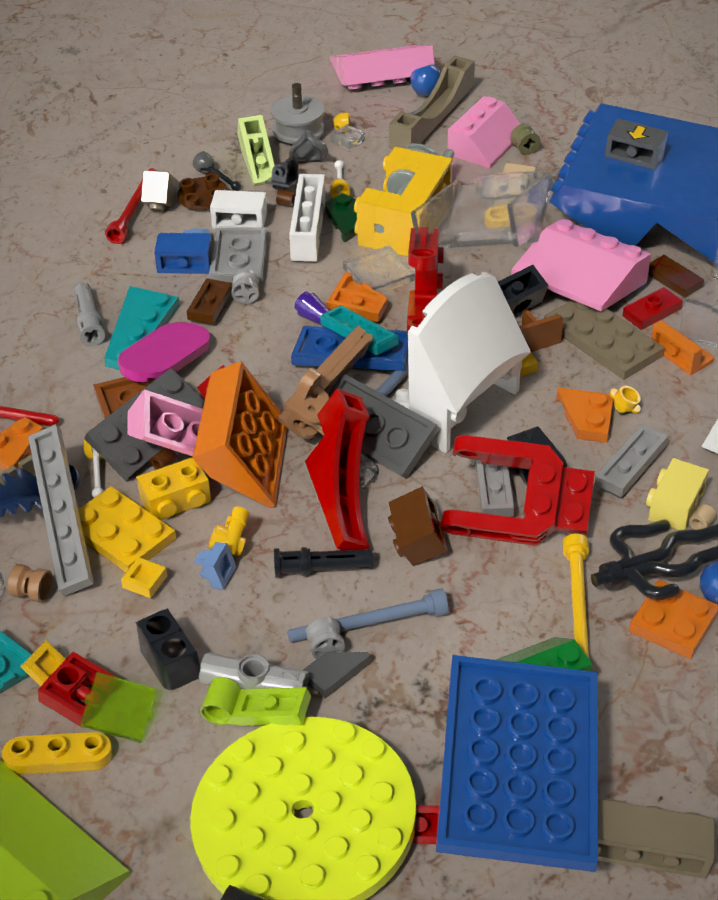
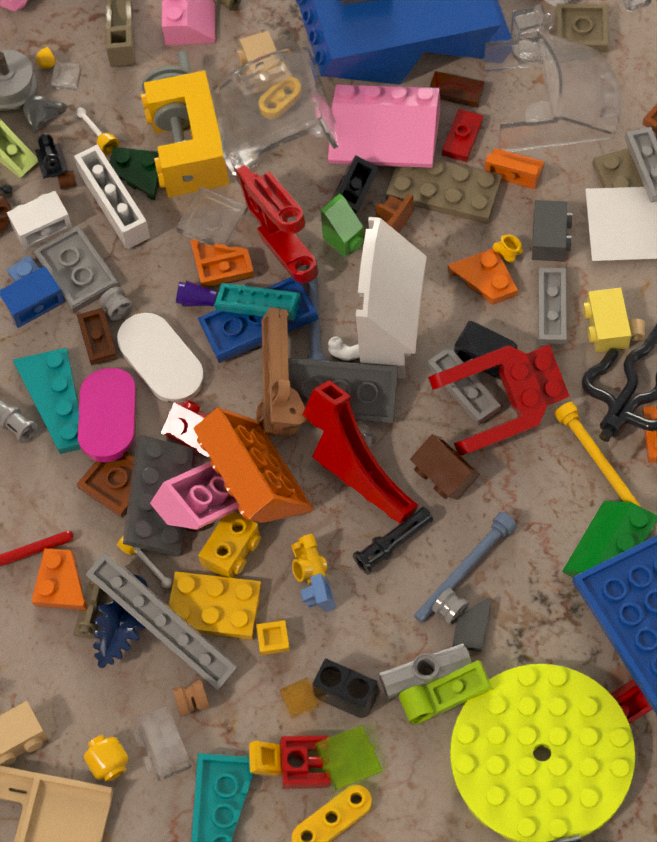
camera: 30 degrees left, 20 degrees up
(121, 639) = (299, 698): none -> clear yellow plate
(248, 336) = (160, 357): none -> white tile
(676, 404) = (550, 230): none -> dark grey brick

